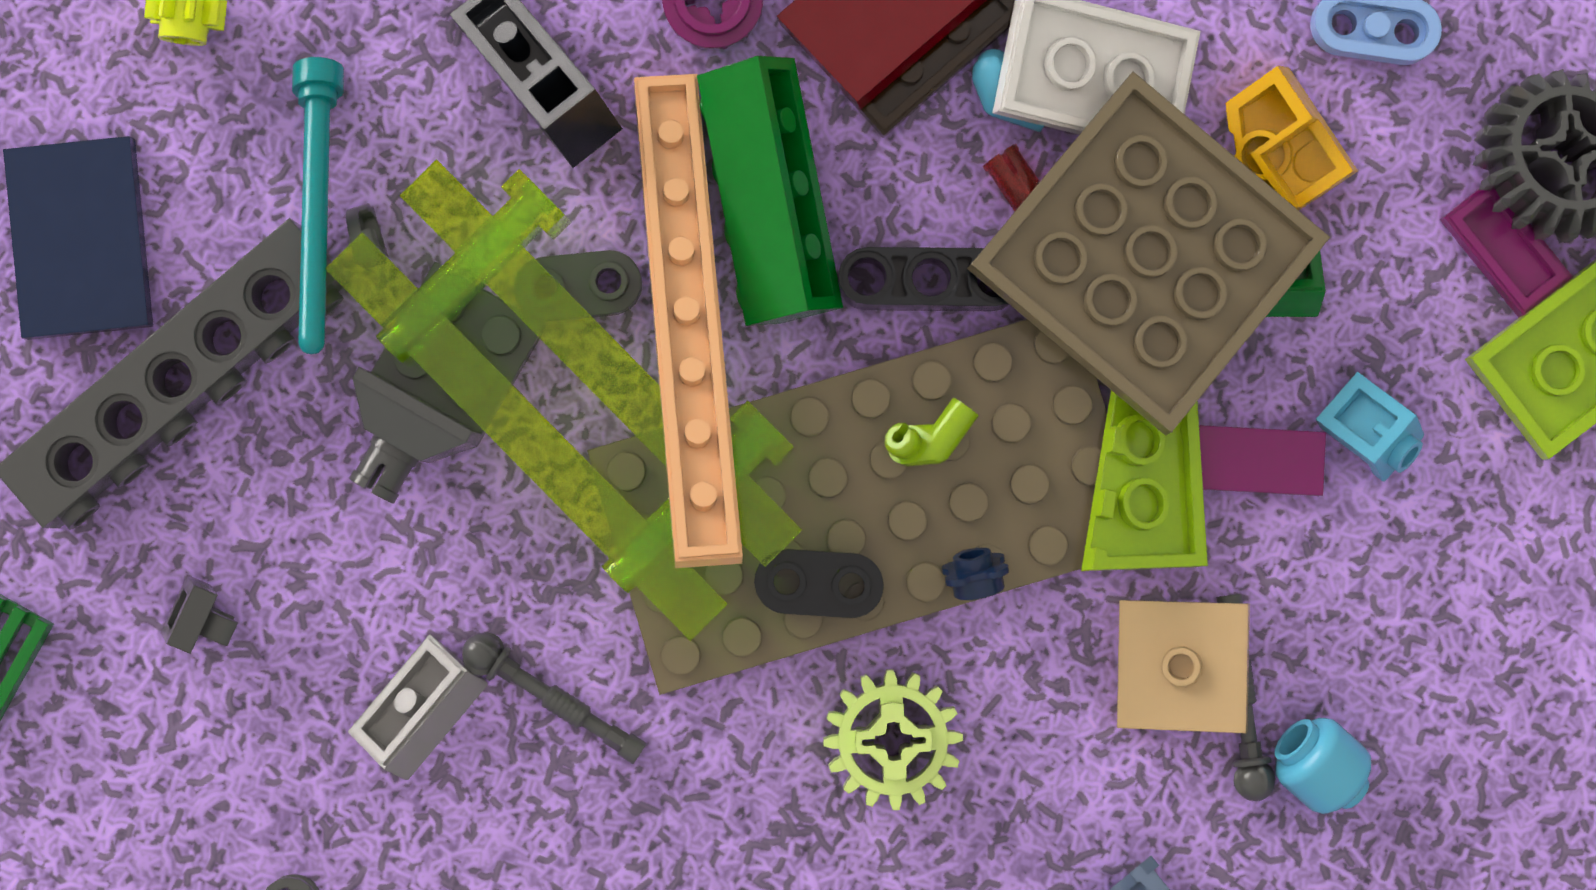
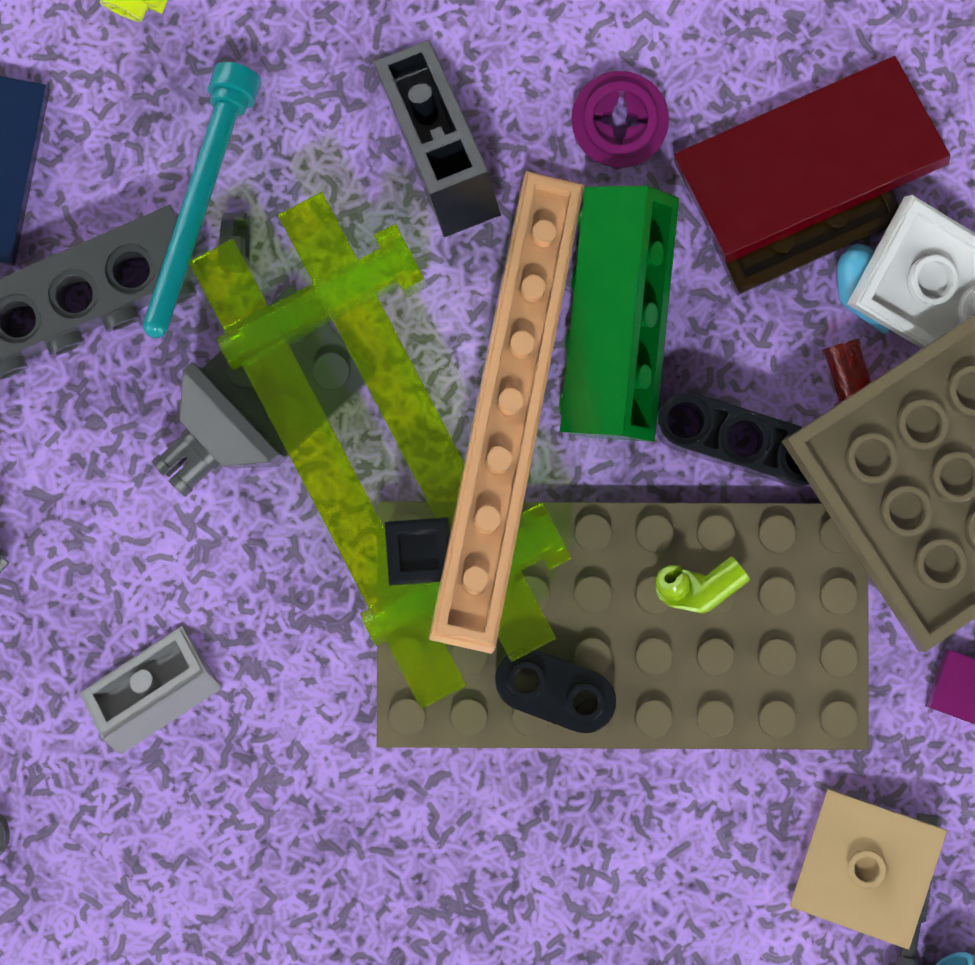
camera: 20 degrees right, 0 degrees up
(486, 656) = (228, 662): dark grey piece -> none
(580, 275) = (422, 335): dark grey plate -> none
(637, 485) = (416, 550): none -> black tile
(891, 709) = (573, 880): yellowish green gear -> none
(975, 573) = (703, 726): dark blue plate -> none
(1147, 495) = (882, 701): lime wing -> none

